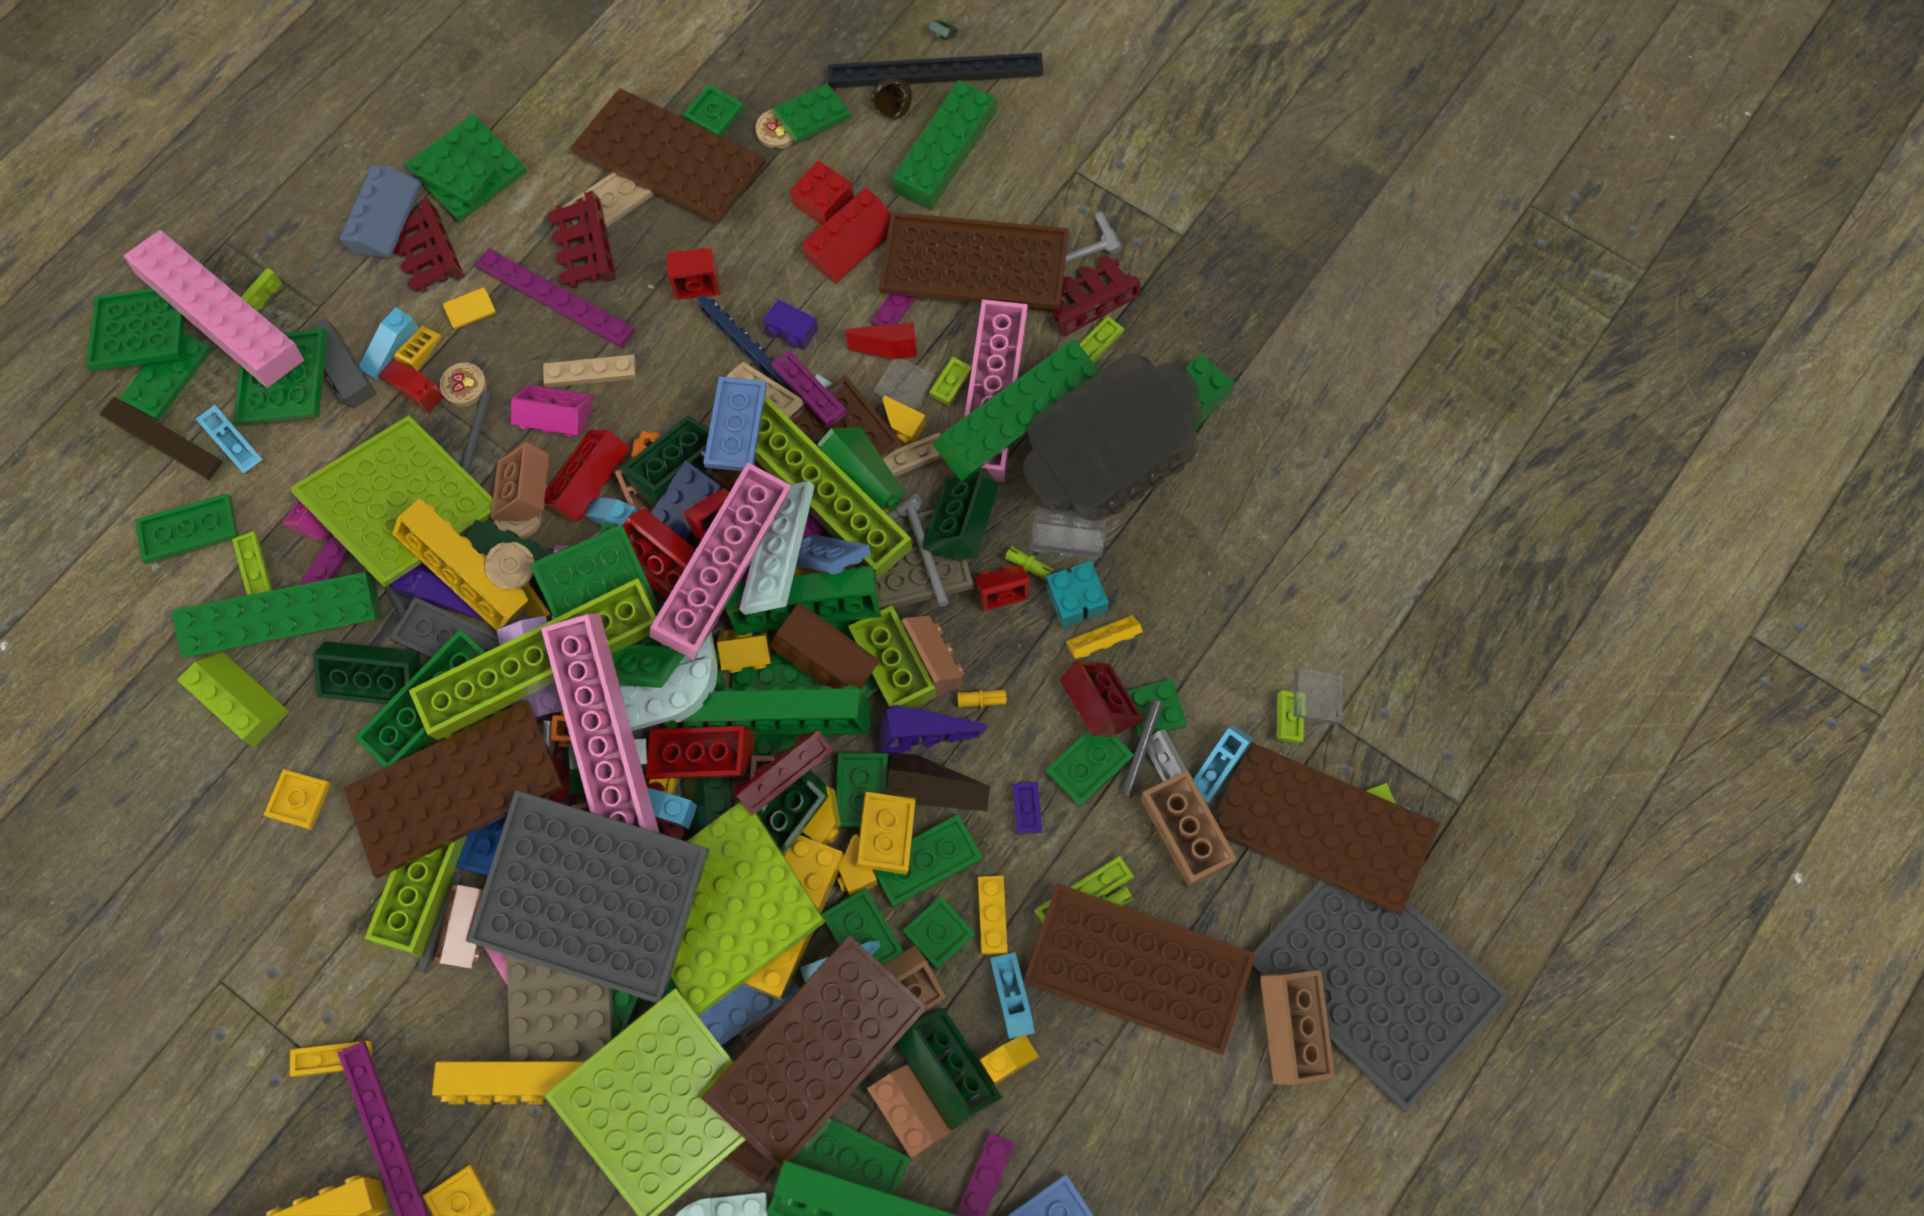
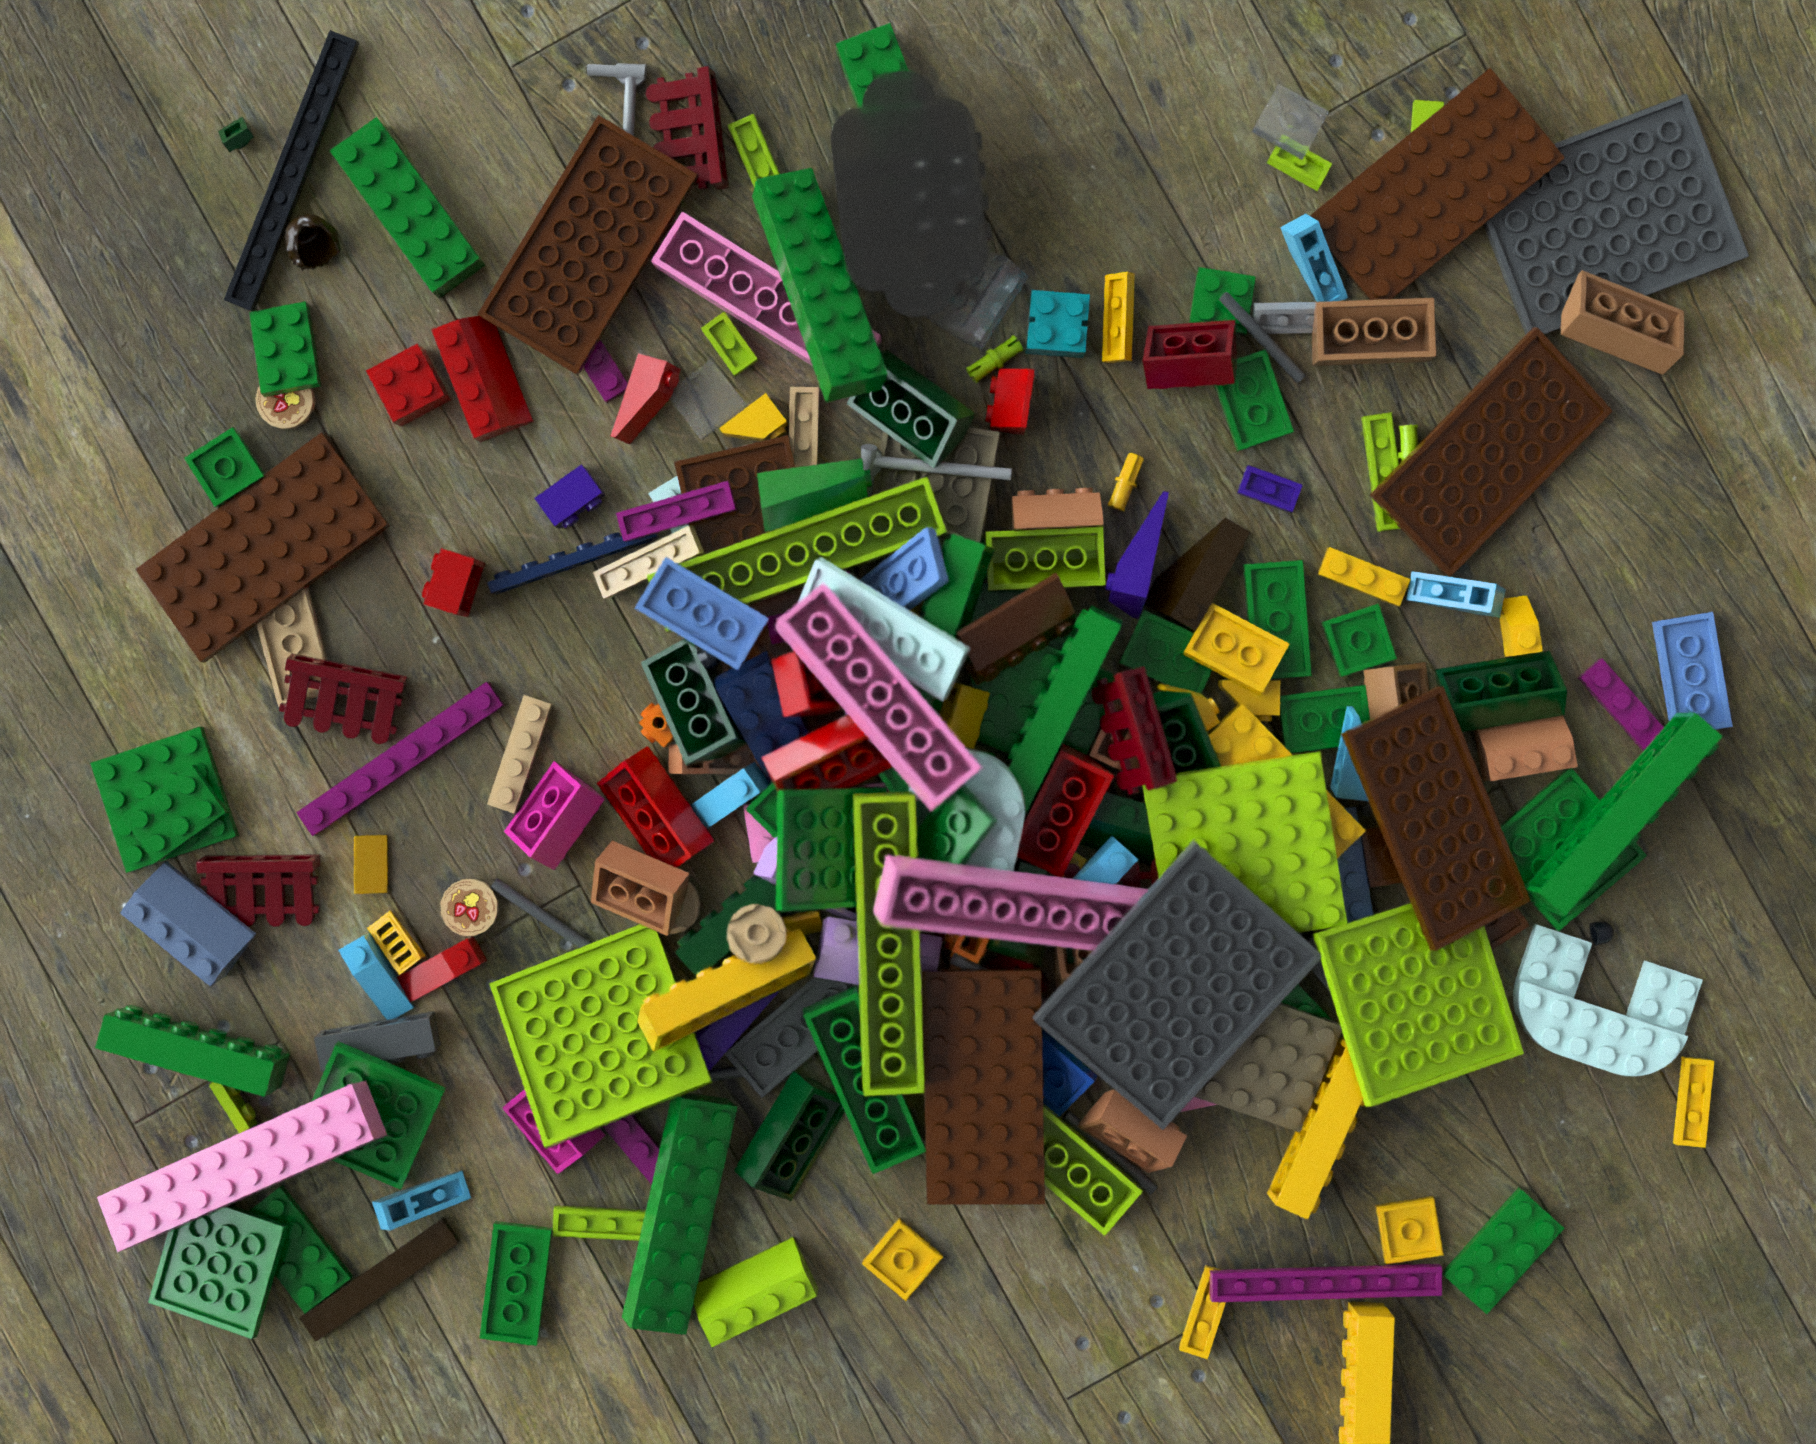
camera: 70 degrees left, 20 degrees up
(288, 249) = (193, 1050): none -> green brick

